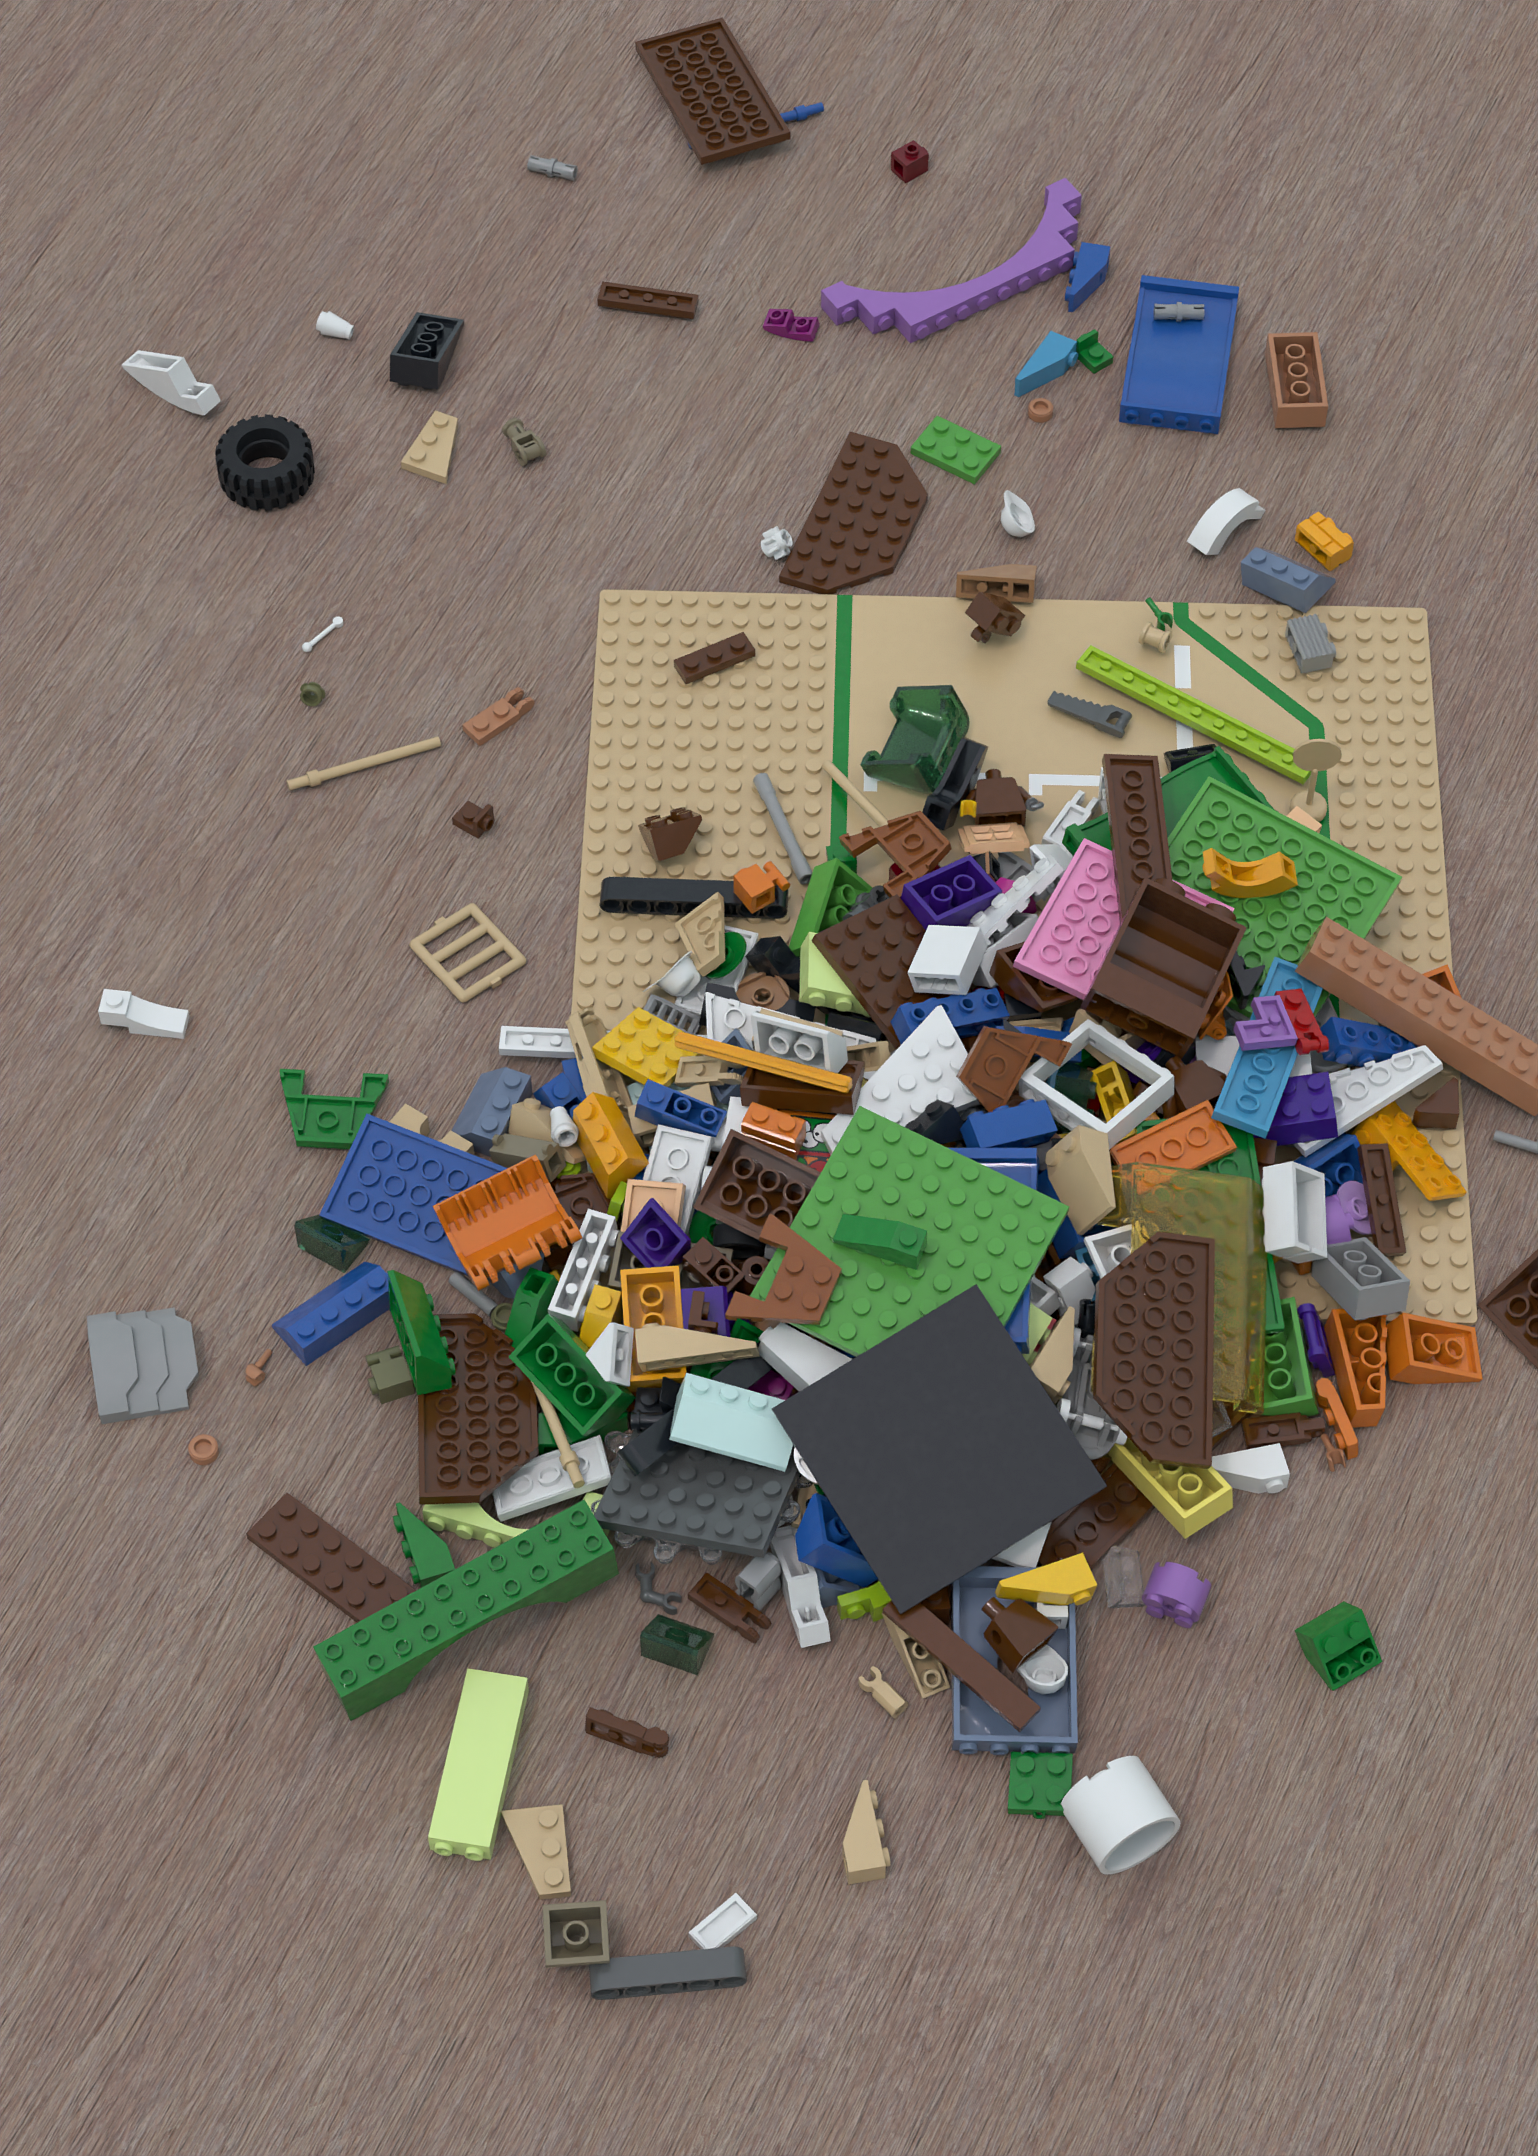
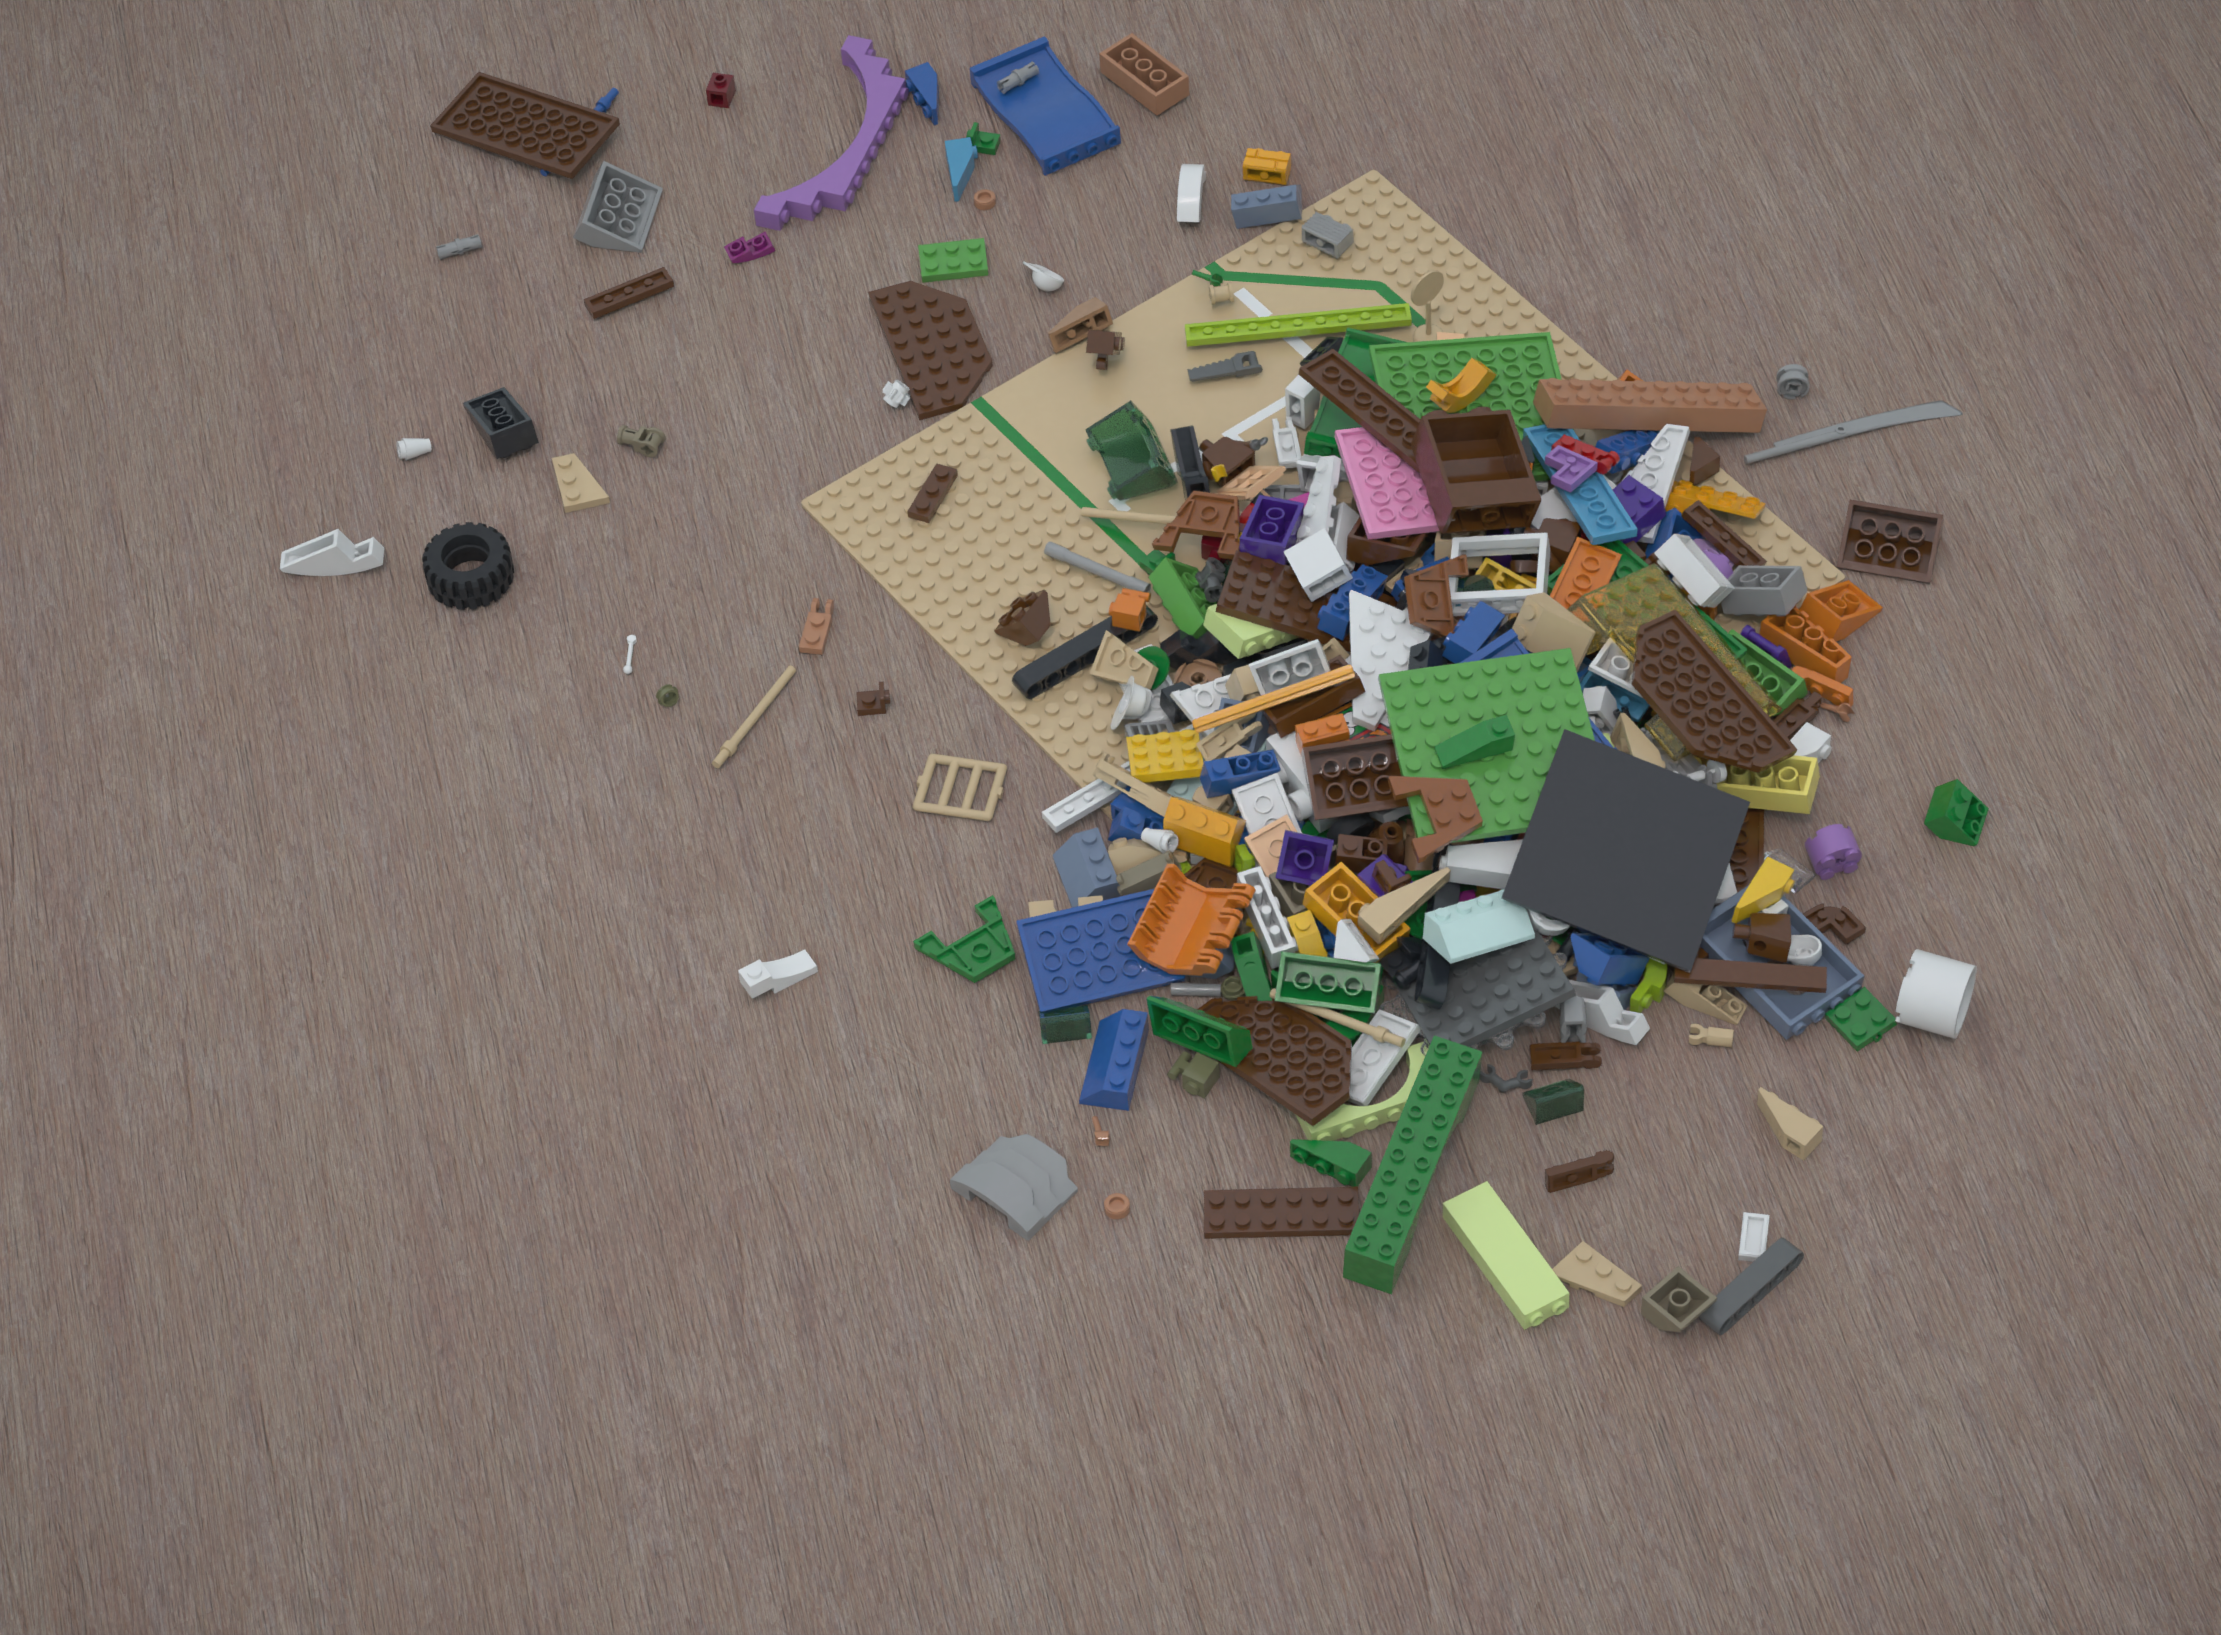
camera: 35 degrees left, 5 degrees down
(712, 217) = (617, 210): none -> light grey slope
(1114, 1658) = (1839, 920): none -> reddish brown plate

